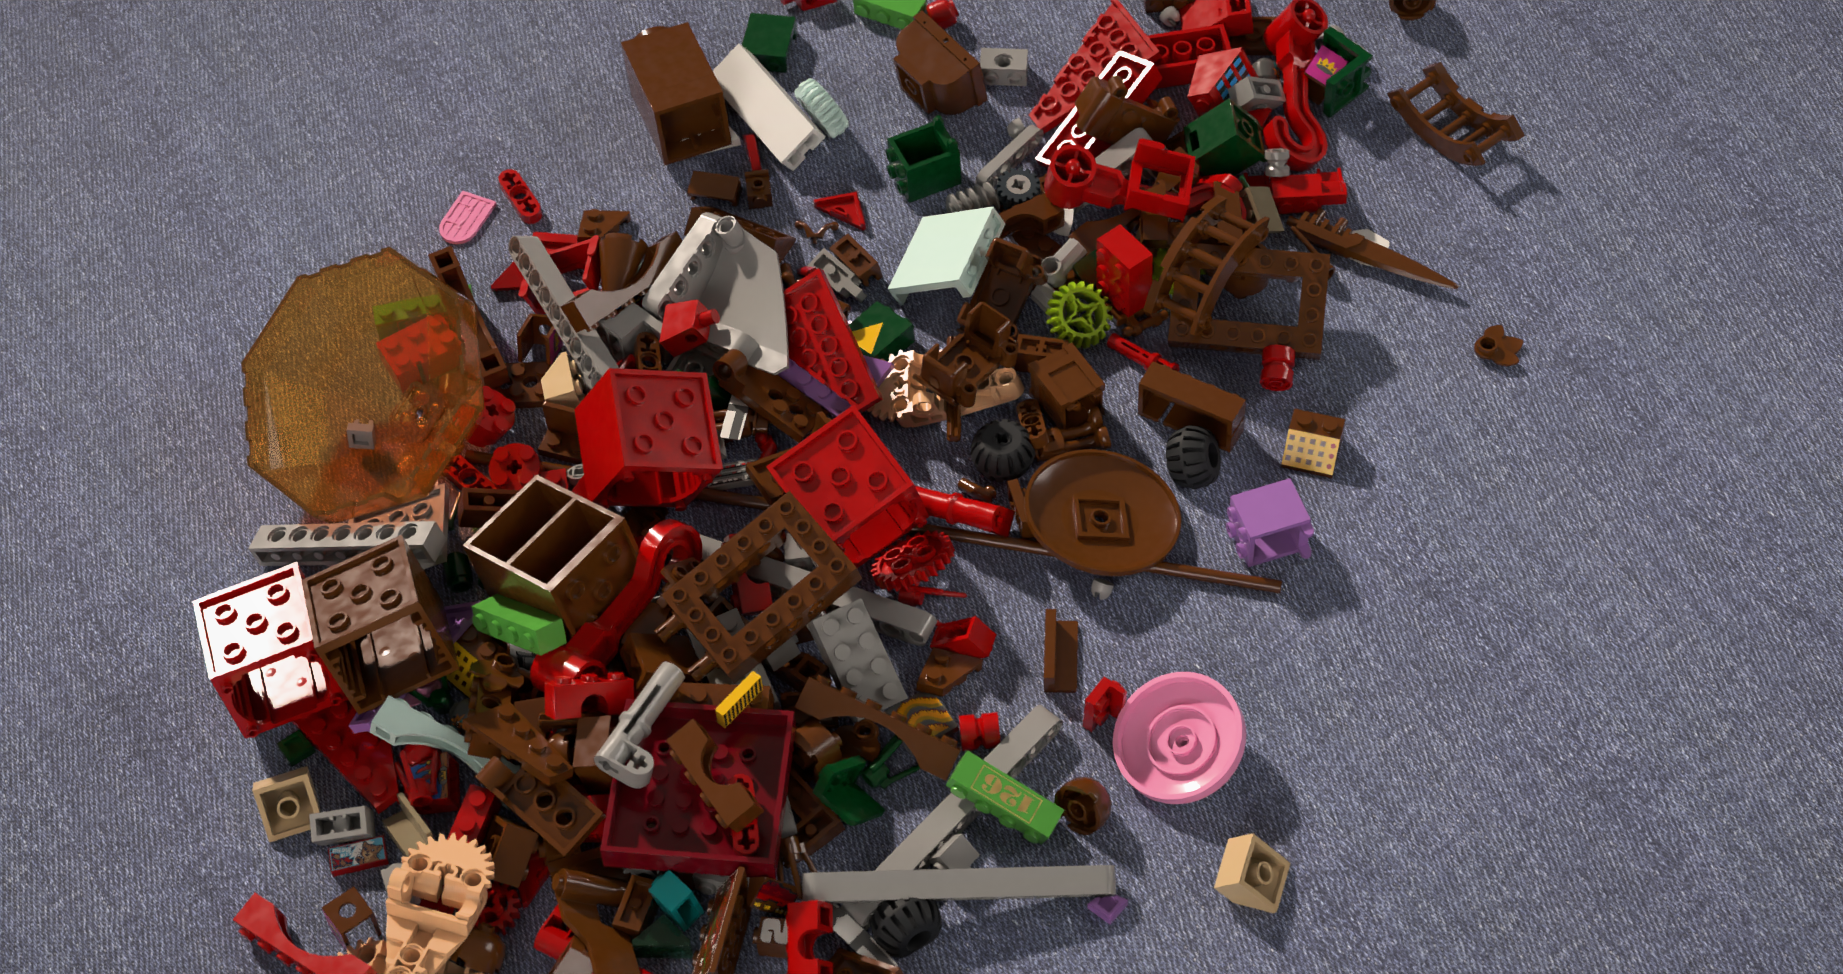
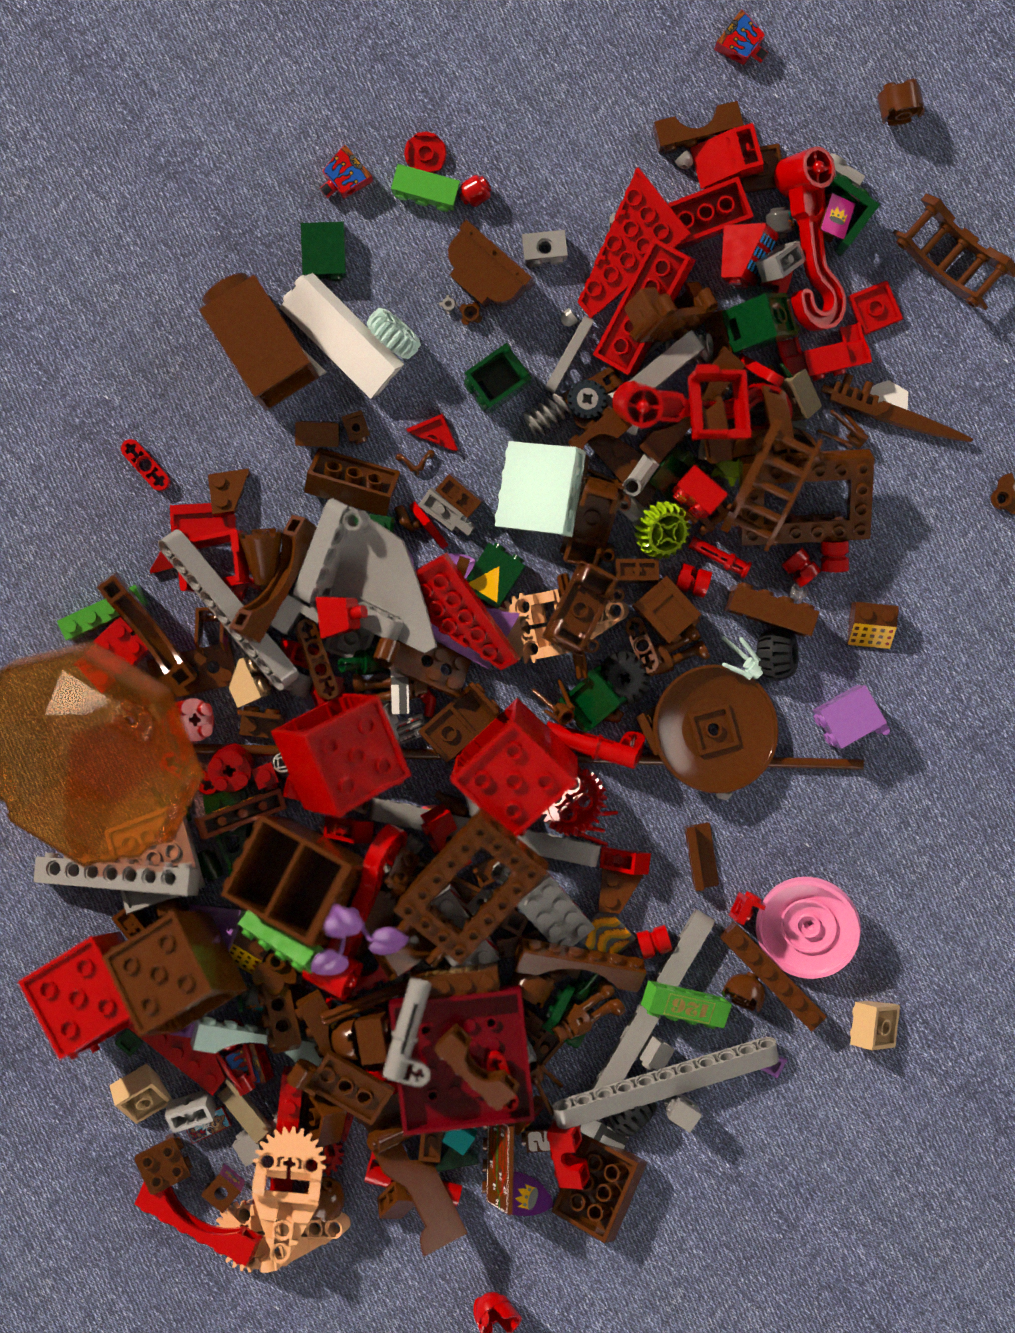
camera: 15 degrees left, 35 degrees up
(287, 876) = (163, 1164): none -> reddish brown bracket
(361, 435) = (89, 753): light grey tile -> none
(465, 218) = (103, 495): bright pink window -> none
(519, 741) = (309, 1046): reddish brown wing -> none
(566, 695) = (342, 1008): red arch -> none
(642, 628) = (347, 922): none -> medium lavender plant
(739, 699) = (478, 996): yellow tile -> none
(752, 151) = (340, 383): red tile -> none
(862, 793) = (578, 1022): none -> reddish brown piece
(888, 104) = (448, 304): none -> light grey piece
(910, 113) = (474, 308): none -> reddish brown plate
(919, 464) = (562, 712): none -> reddish brown plant
(957, 468) = (593, 700): none -> dark green panel
(973, 925) = (682, 1111): none -> light grey brick
(1112, 371) = (693, 580): none -> red wheel
(1150, 823) = (772, 976): none -> reddish brown arch
(1158, 463) = (750, 665): none -> light aqua plant
(1236, 375) = (801, 567): none -> red wheel
(1276, 159) = (809, 338): light grey wheel -> none
(1361, 162) = (875, 307): none -> red tile

